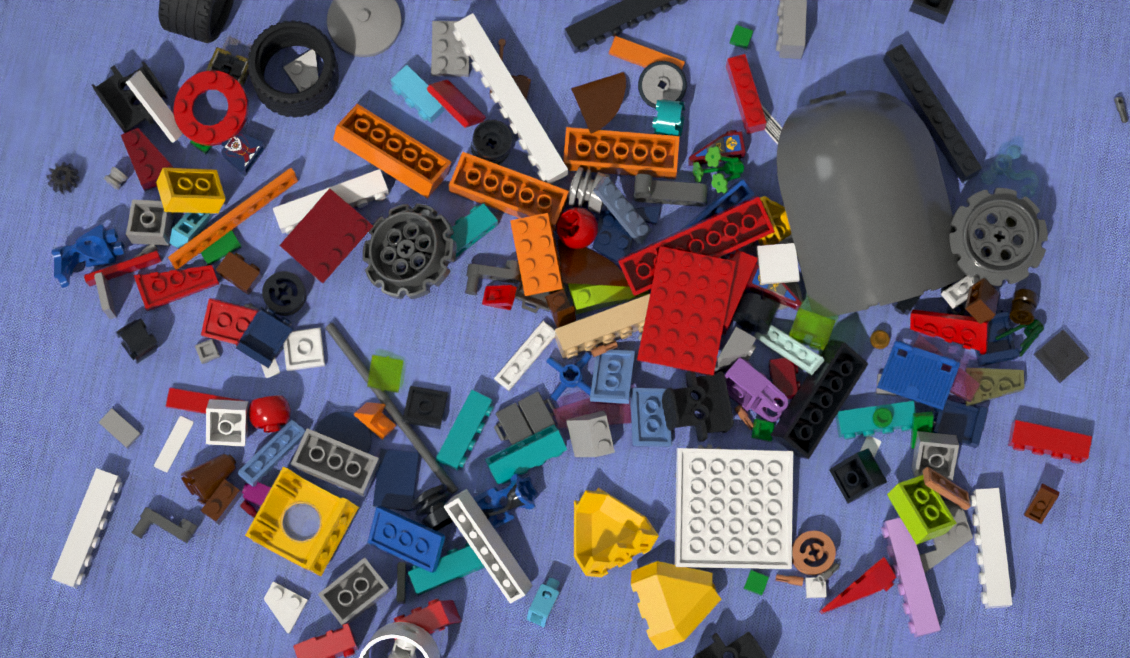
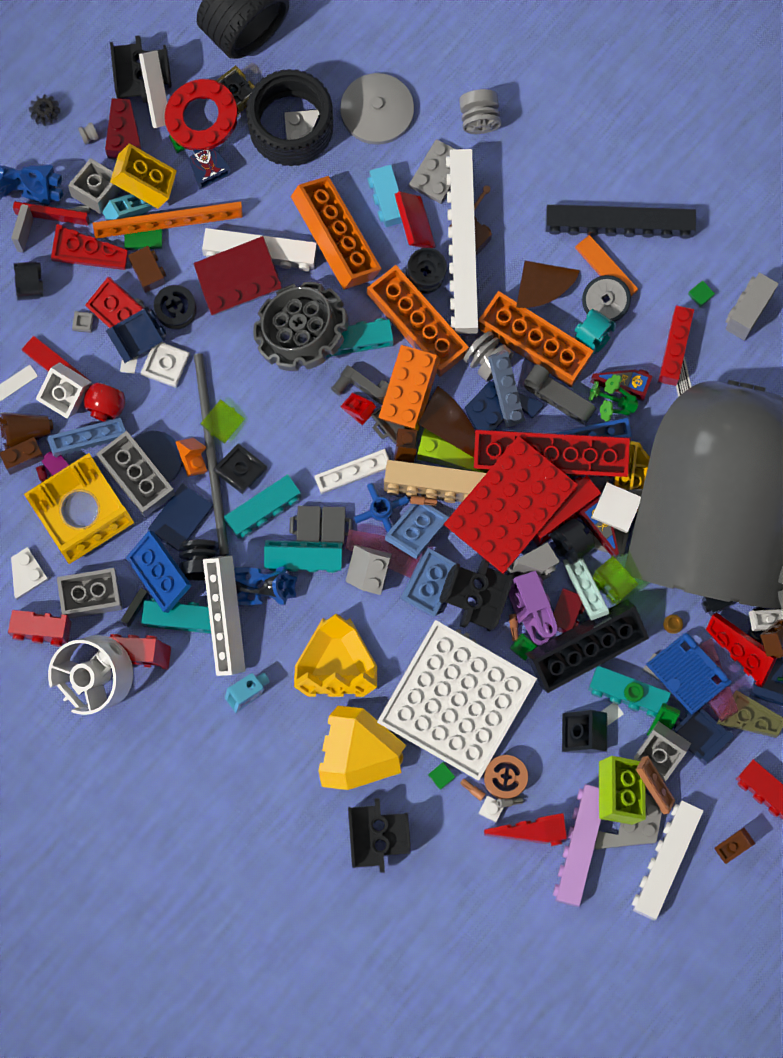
camera: 30 degrees right, 0 degrees up
(577, 228) = (458, 383): red wheel -> none

